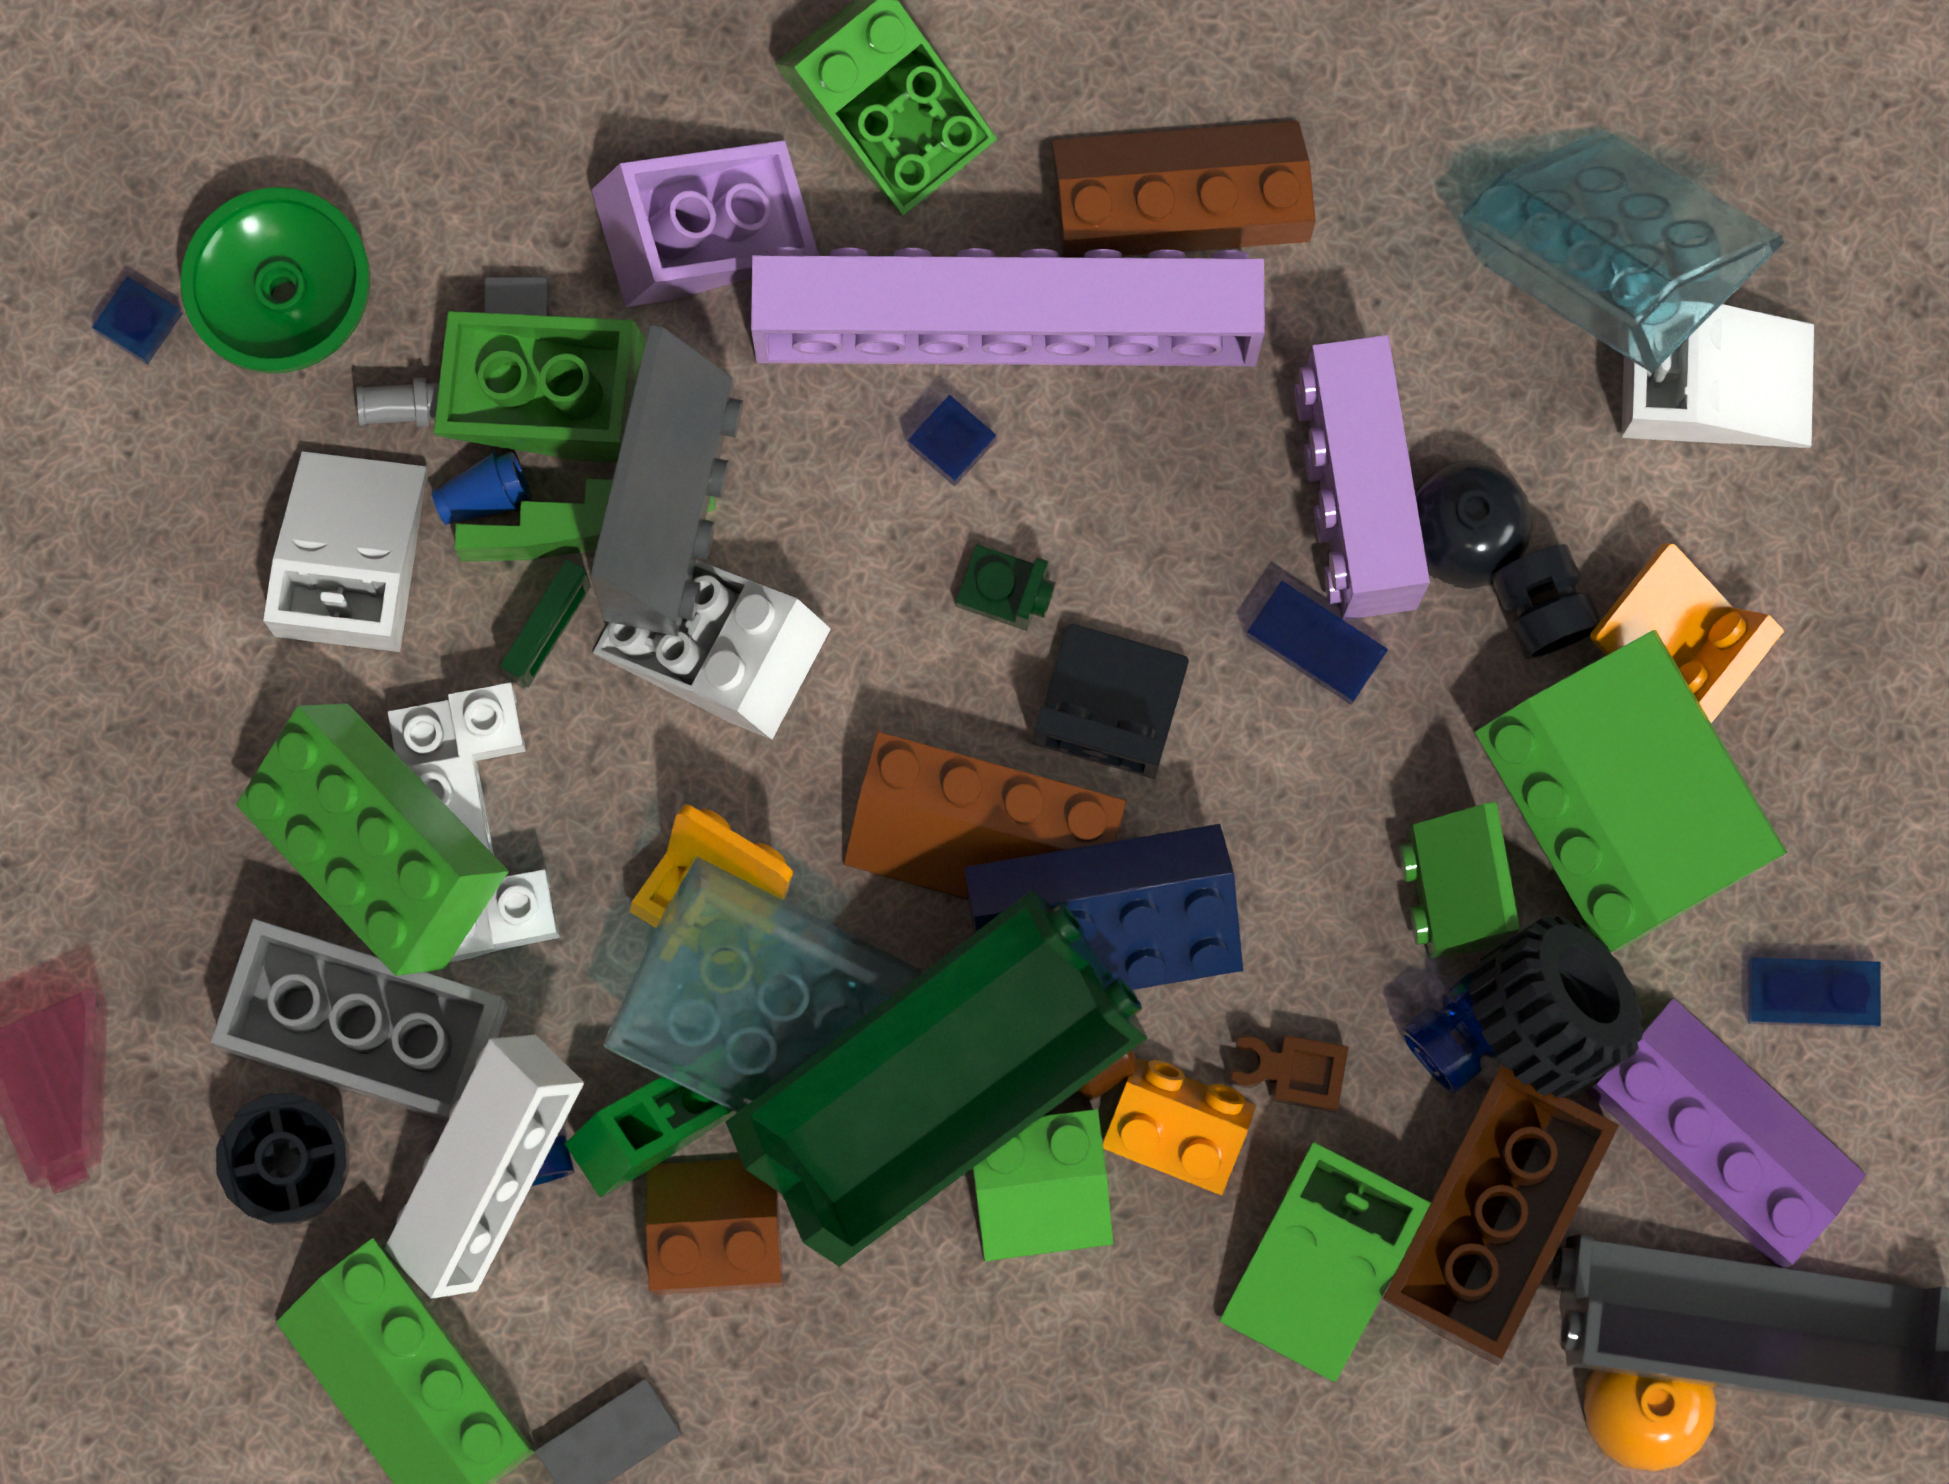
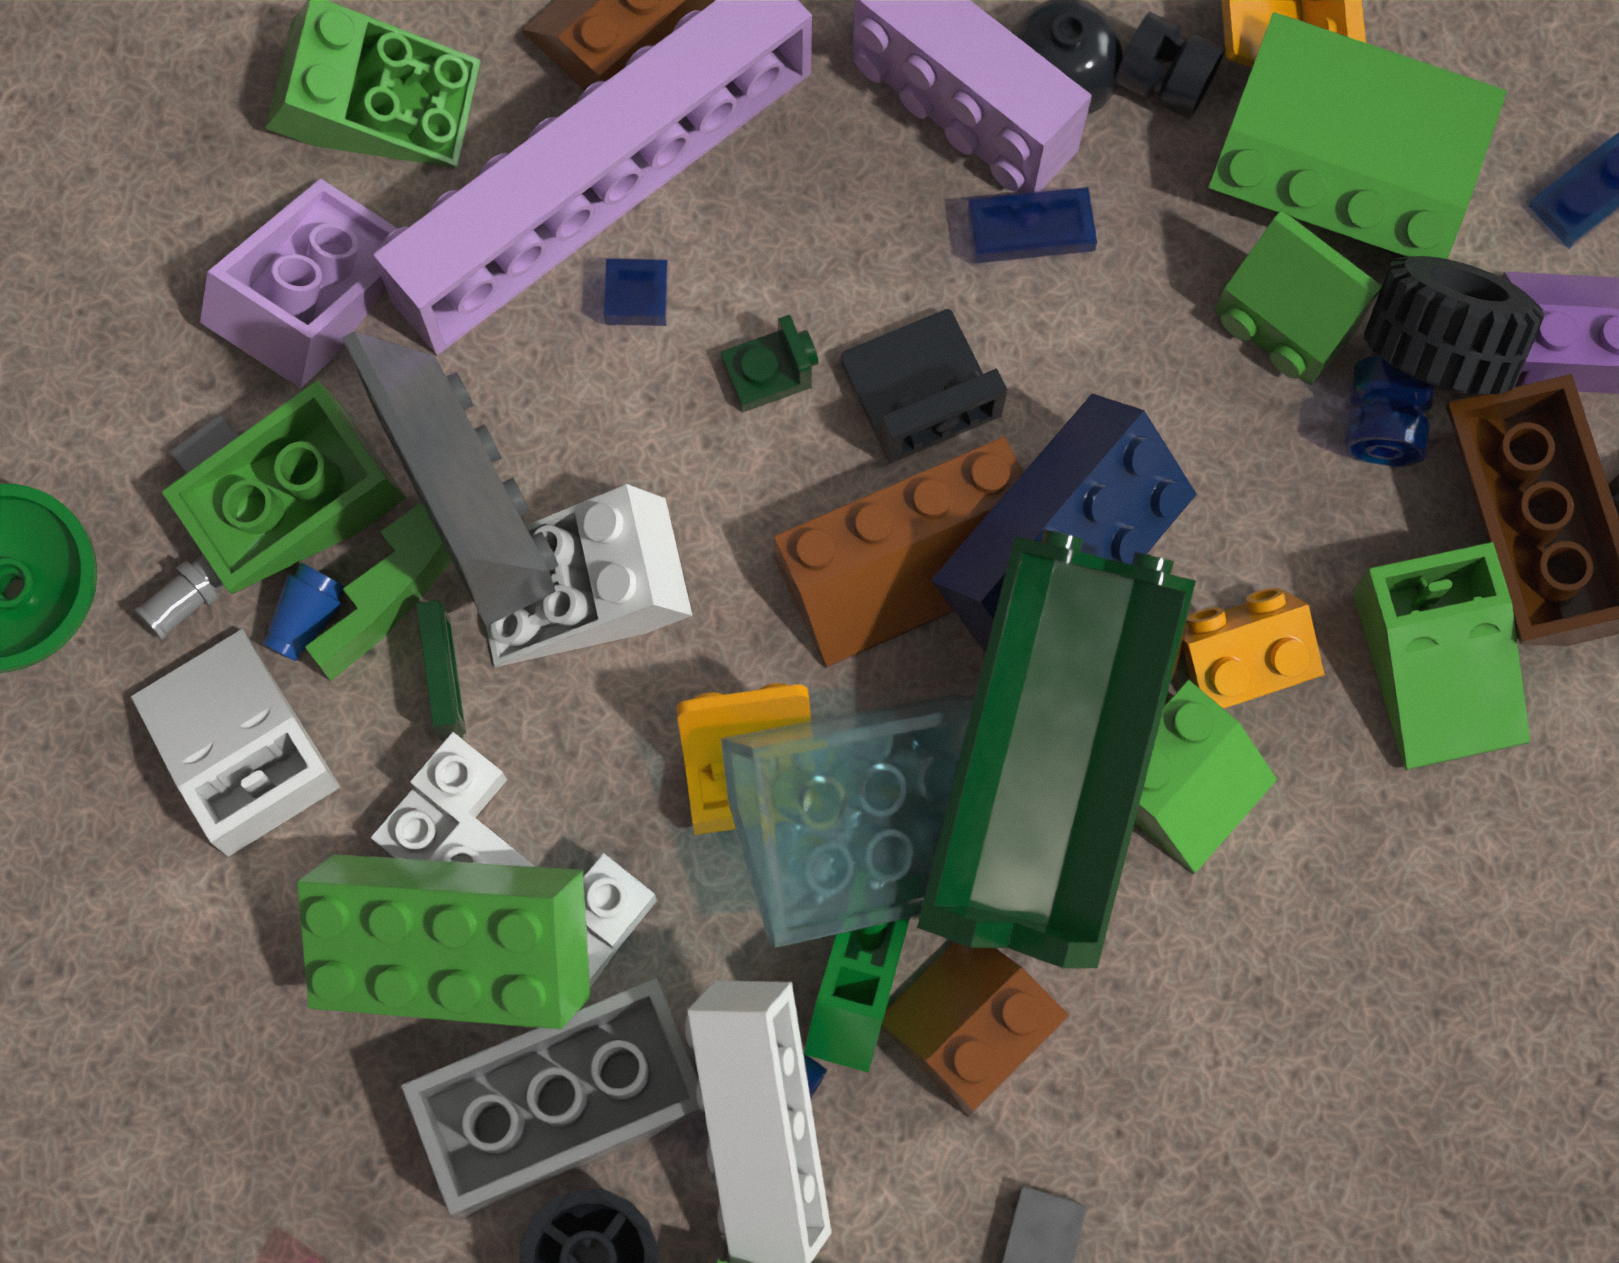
camera: 40 degrees left, 5 degrees down
(1304, 1072) = (1299, 535): reddish brown plate -> none

